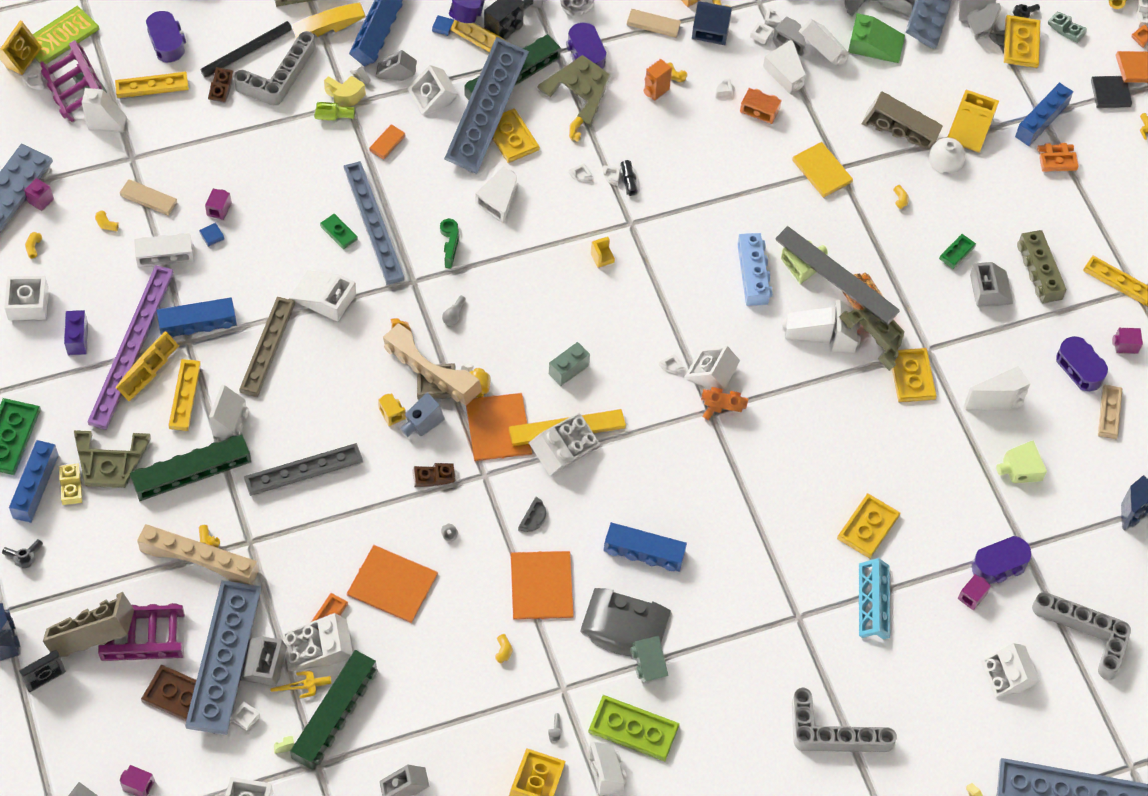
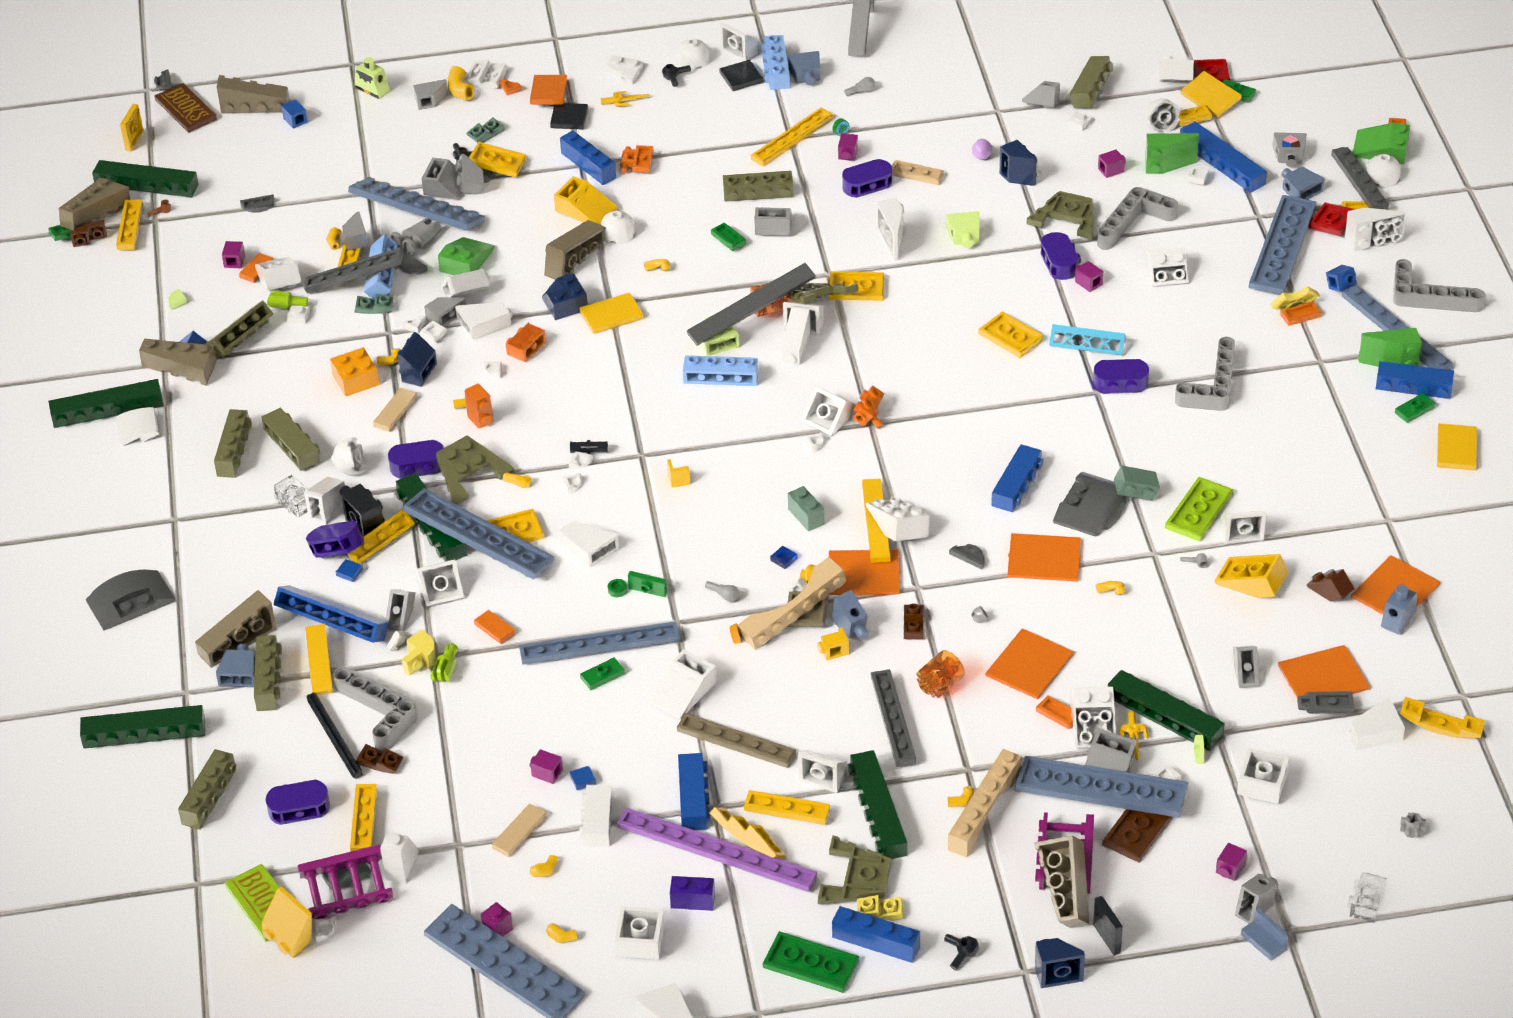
camera: 75 degrees left, 15 degrees down
(354, 500) = (940, 674): none -> clear orange gear
(507, 356) = (783, 557): none -> clear blue tile
(818, 635) = (1121, 376): none -> dark purple brick
(831, 126) = (565, 297): none -> dark blue slope
(1086, 563) = (1068, 208): none -> olive wing

